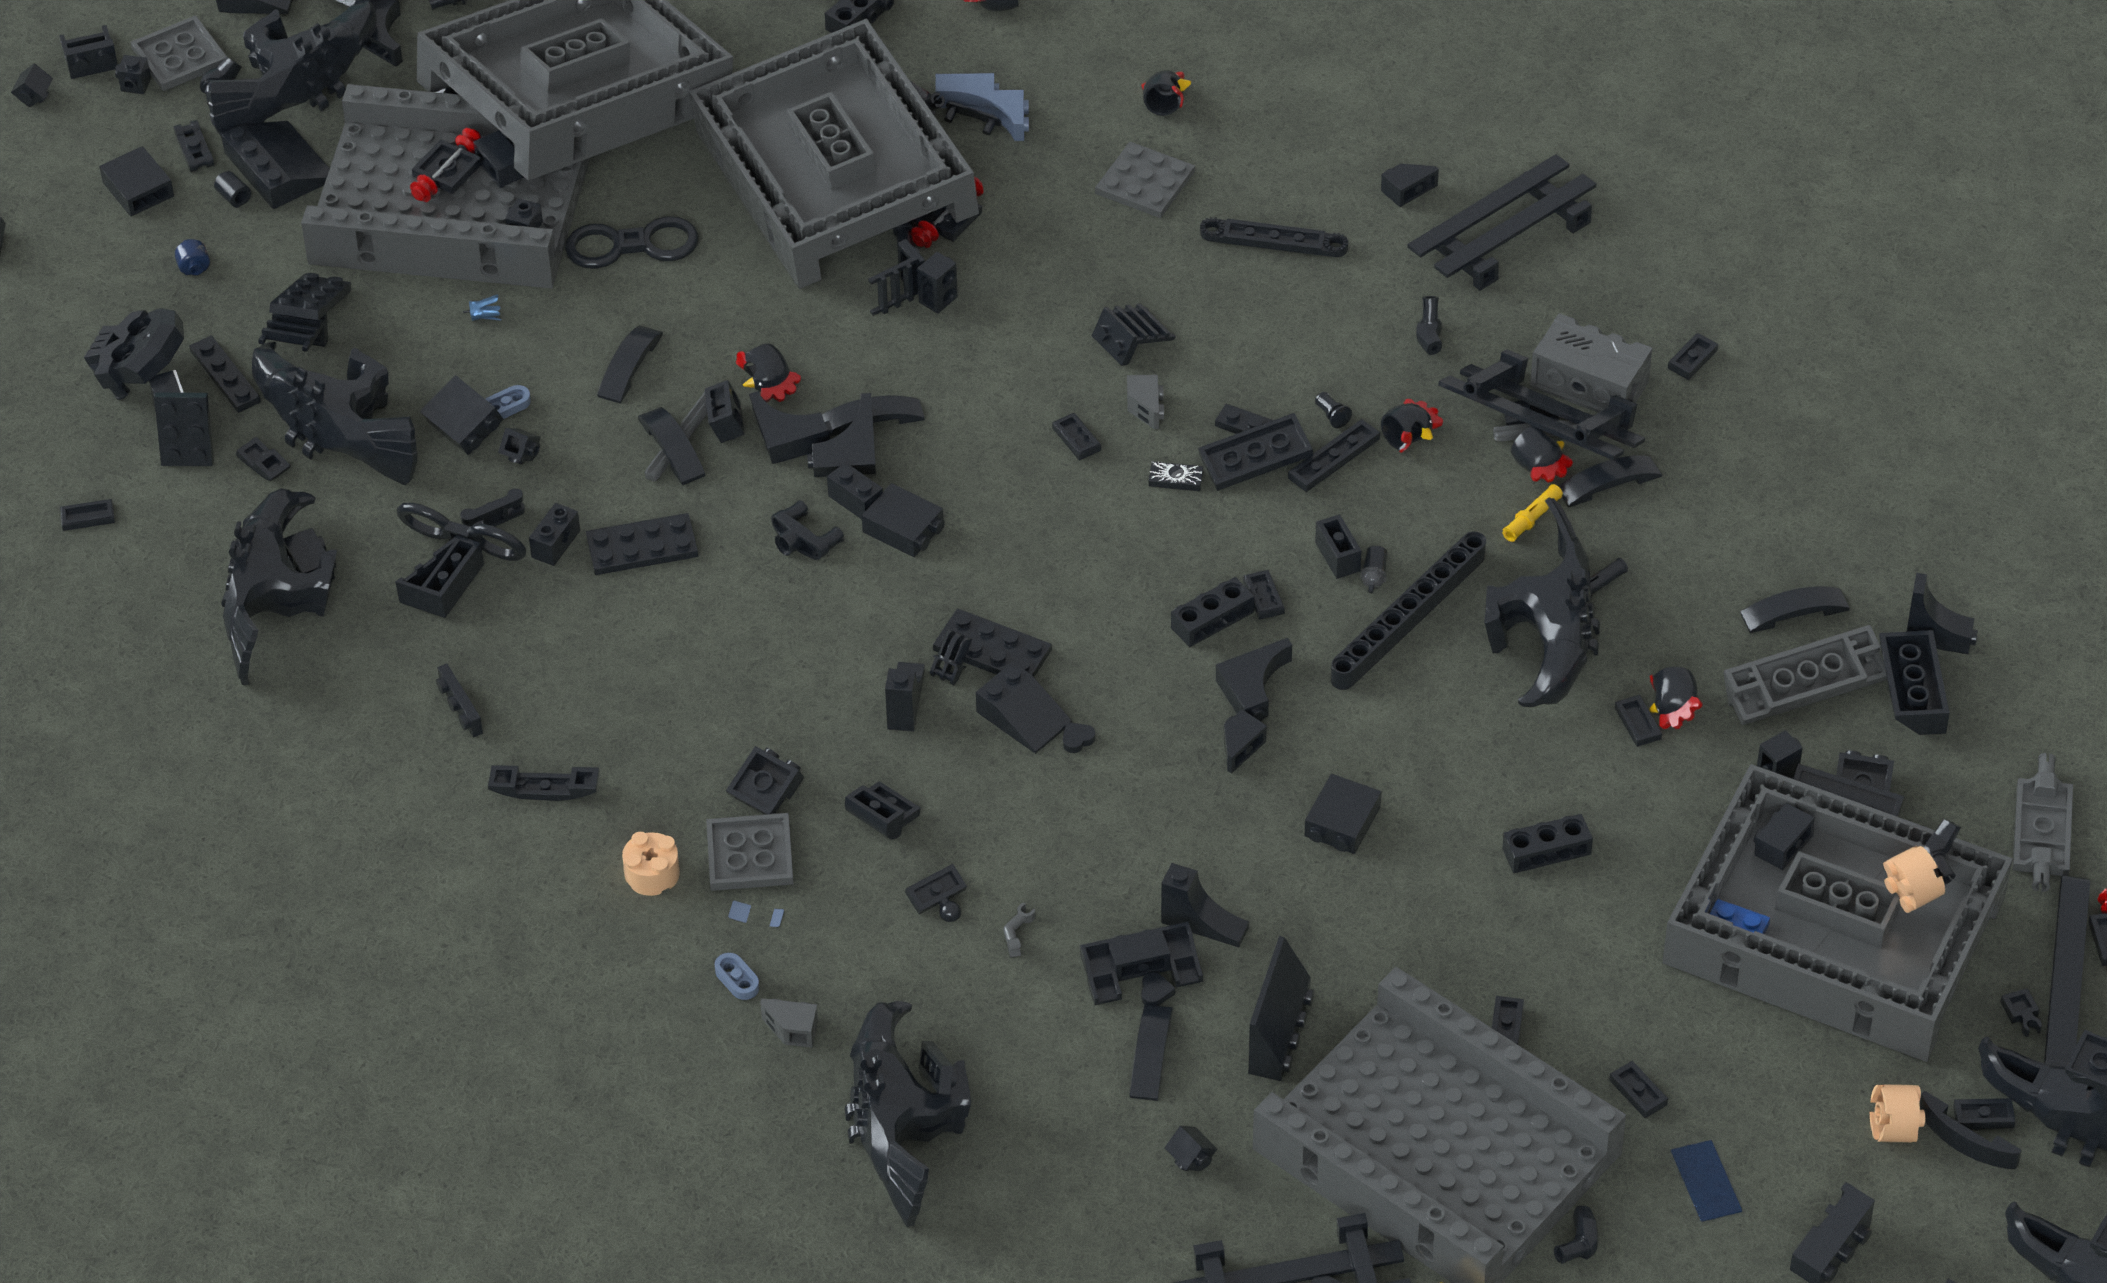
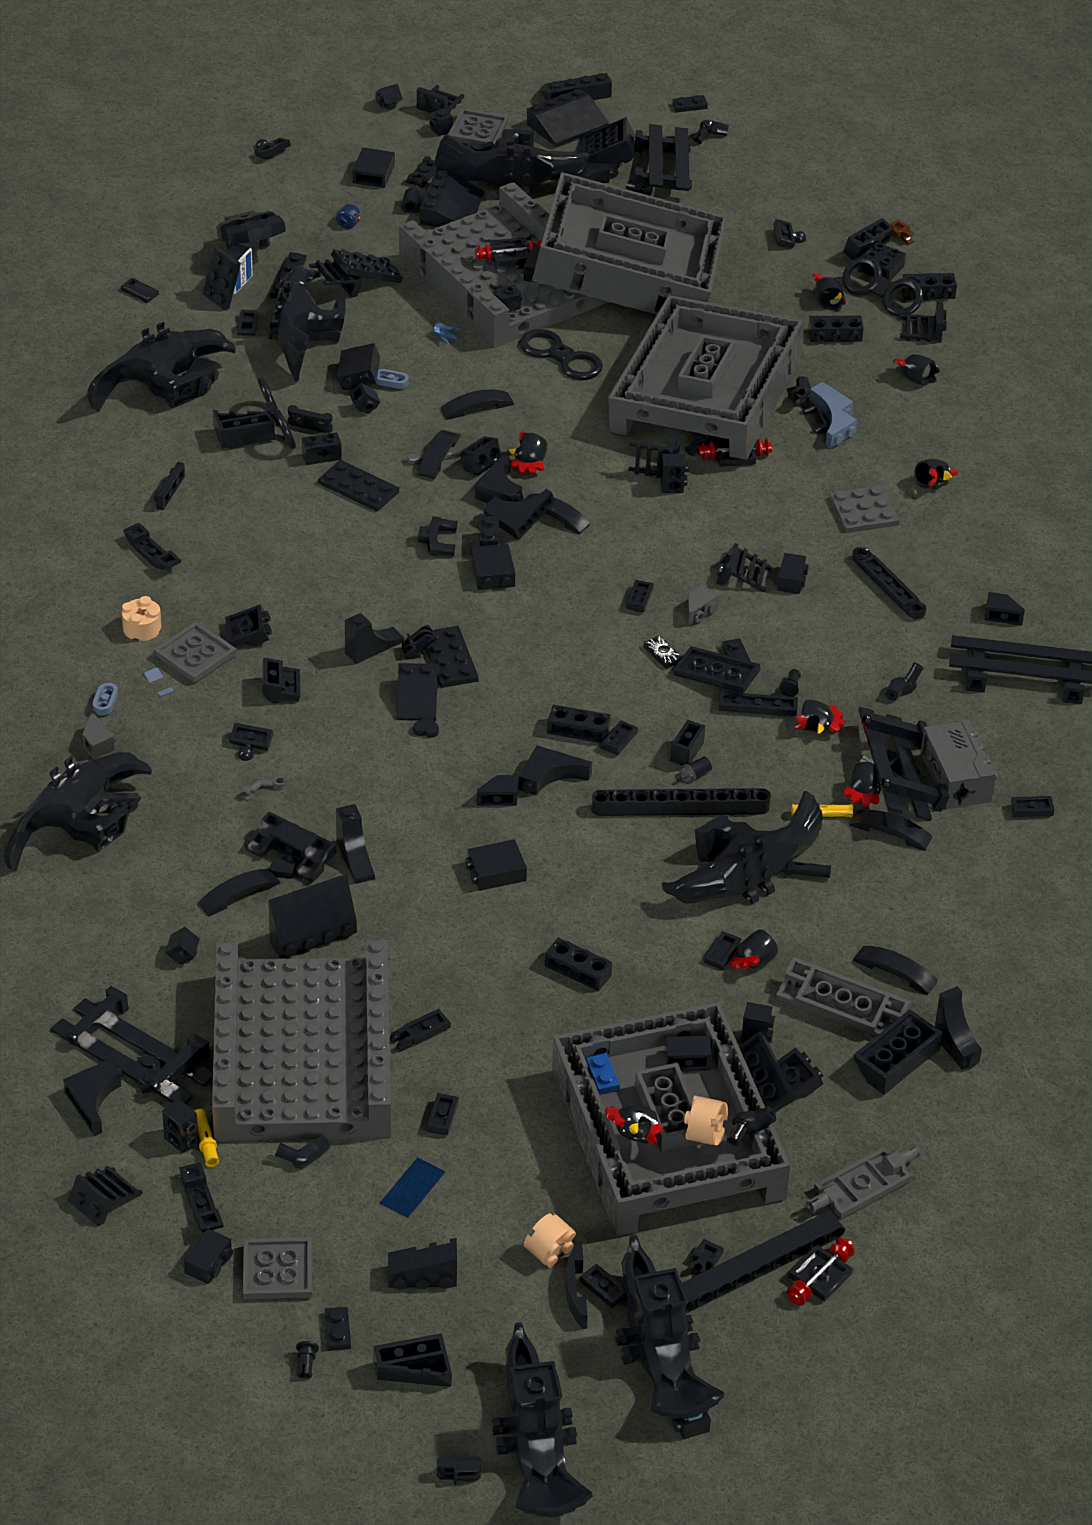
camera: 45 degrees right, 5 degrees down
(1180, 298) = (792, 573): none -> black brick
(1851, 938) = (631, 1122): none -> black piece

